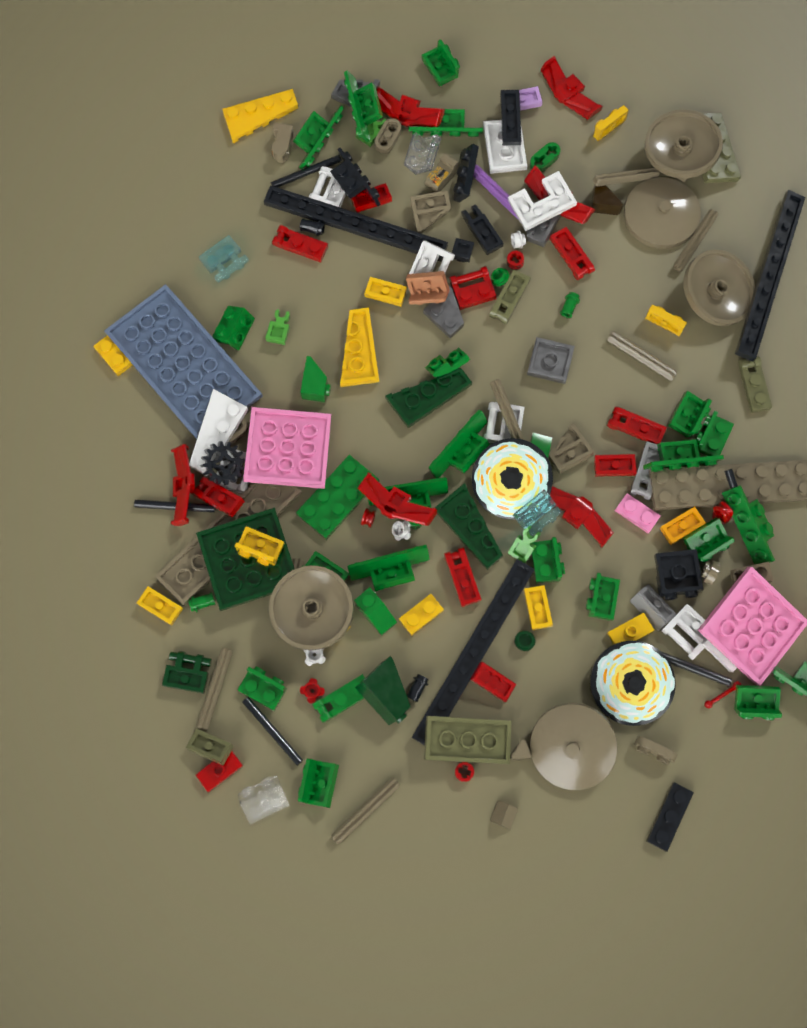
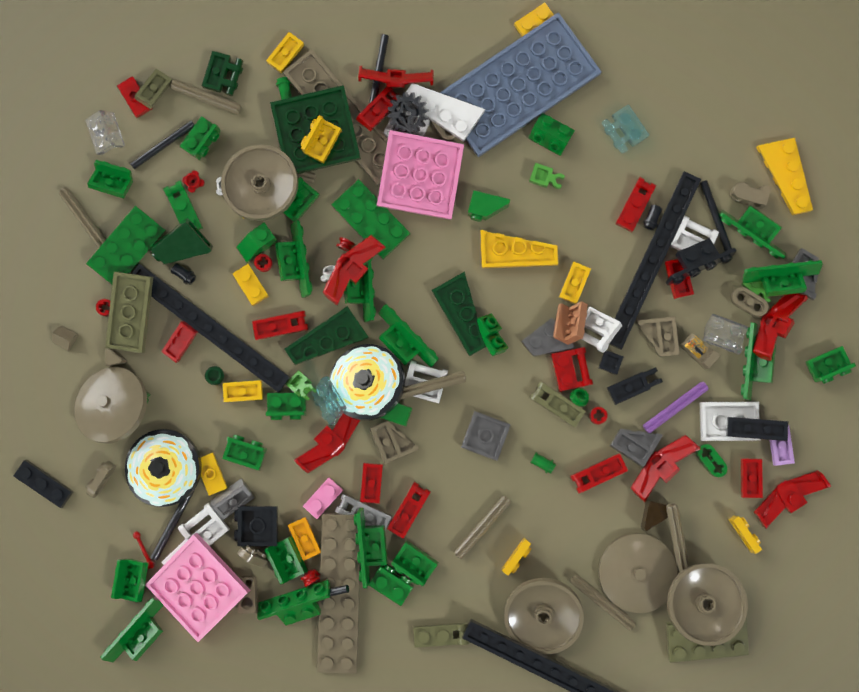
camera: 100 degrees right, 10 degrees up
(393, 755) = (126, 245): none -> green plate
(400, 599) = (267, 267): none -> red bush
(465, 173) = (699, 376): black plate -> none
(518, 240) = (619, 420): white plate -> none
(556, 121) = (751, 478): none -> red plate
(558, 201) = (650, 460): white plate -> none

